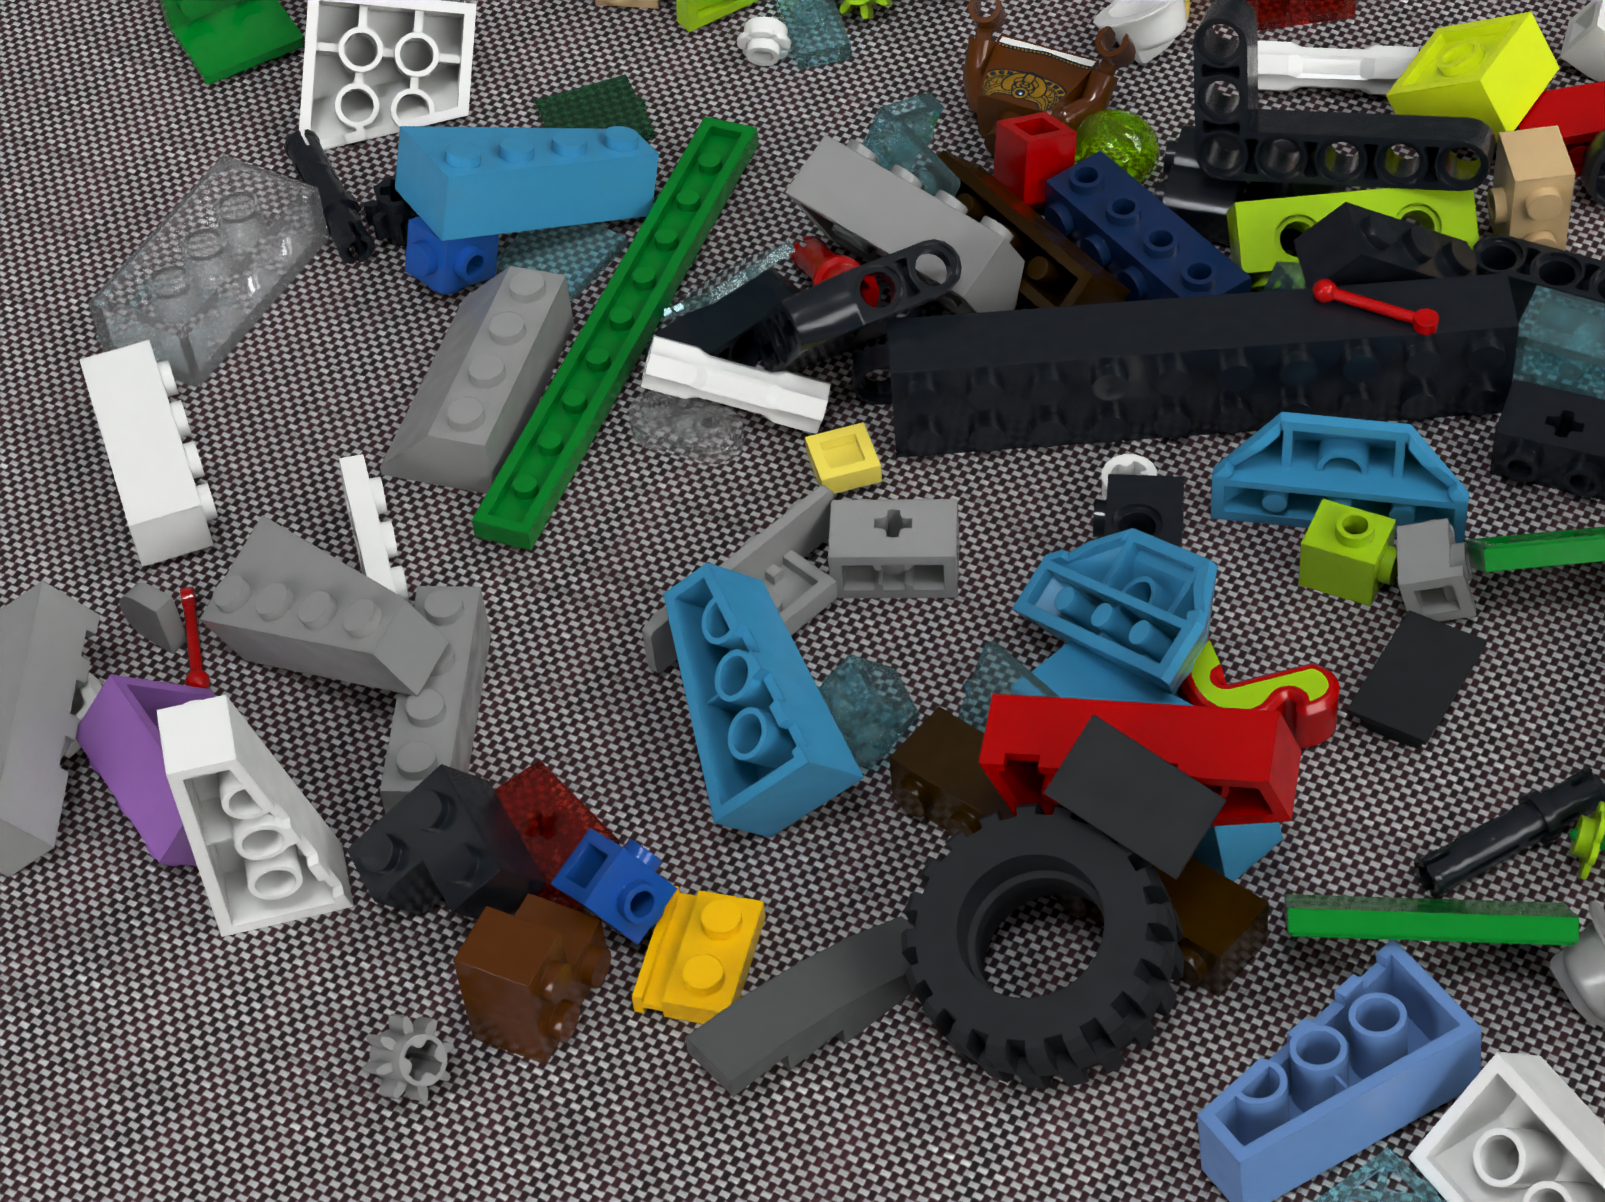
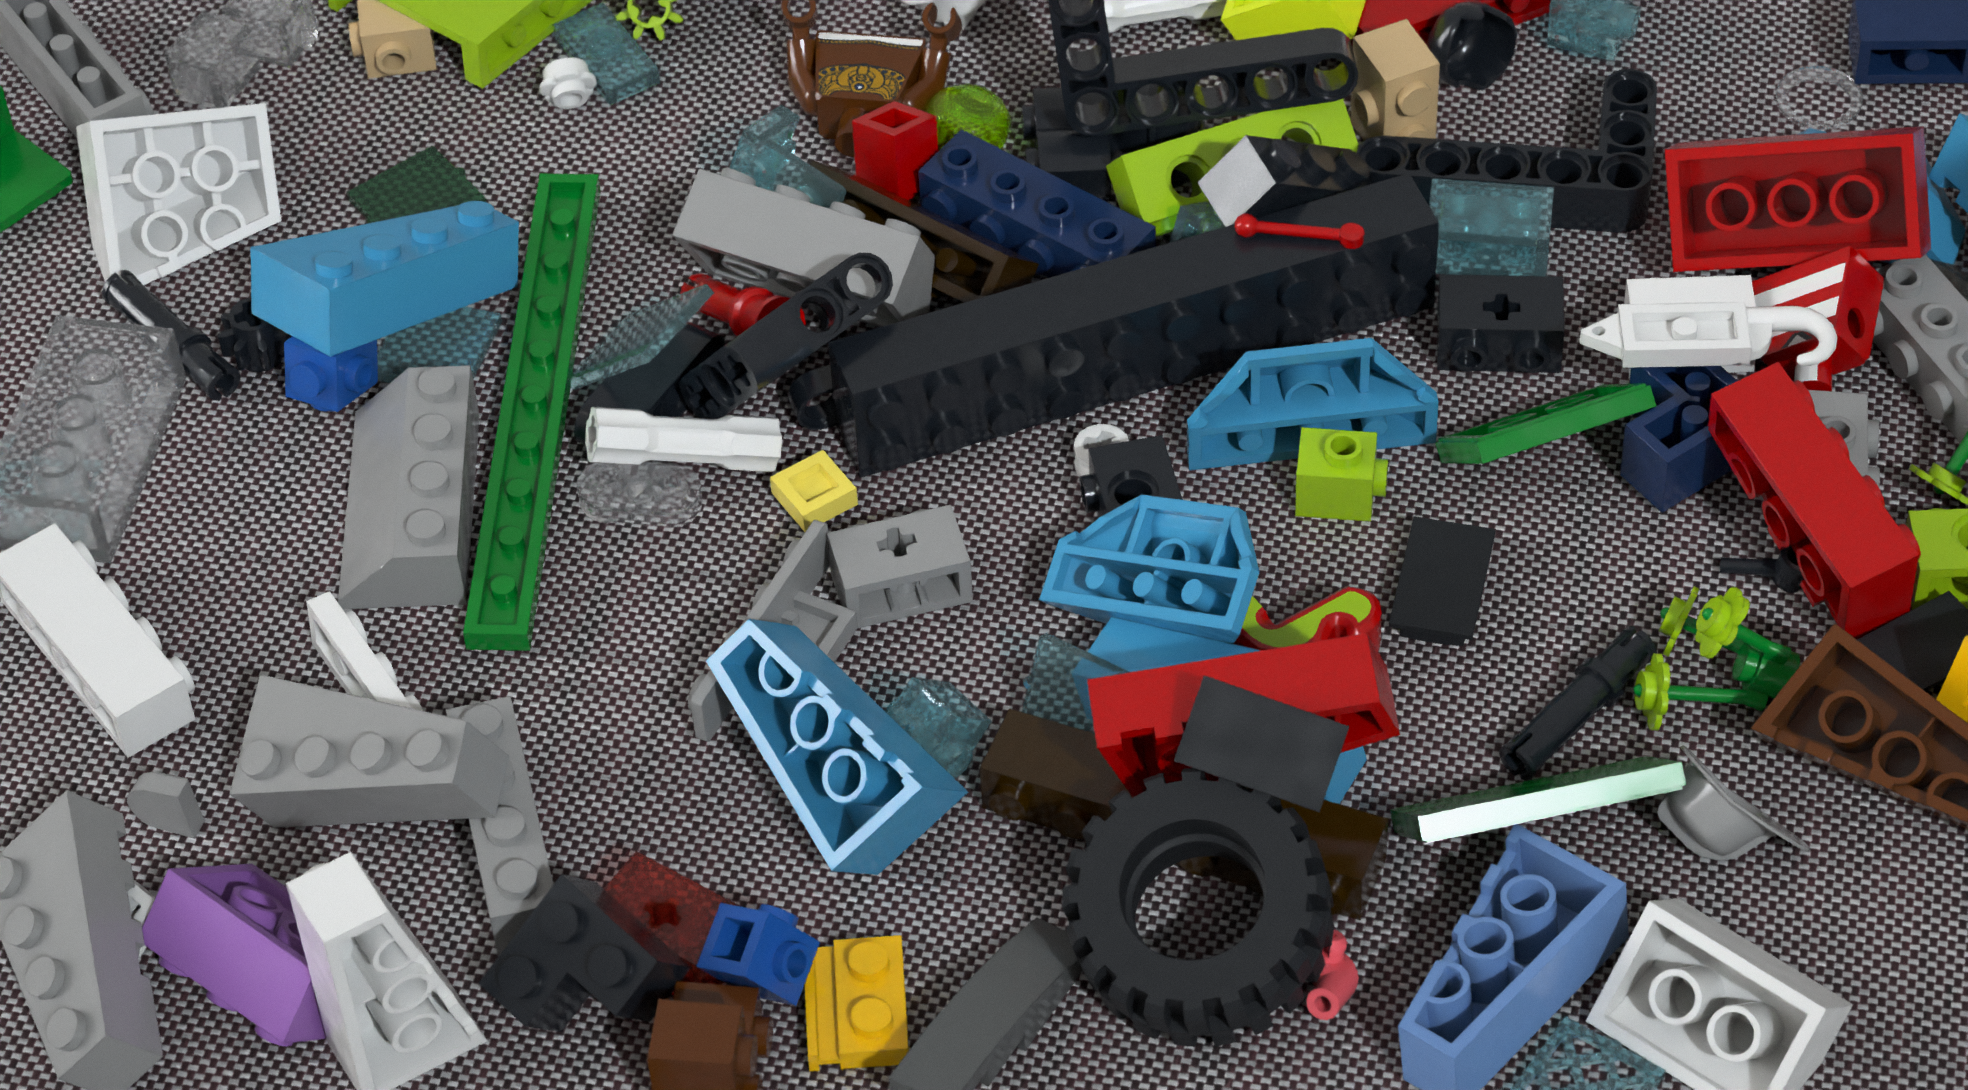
camera: 20 degrees left, 0 degrees up
(196, 676) = (232, 853): red hinge -> none
(1167, 1051) = (1335, 982): none -> coral arm
(1434, 571) = (1426, 473): light grey brick -> none

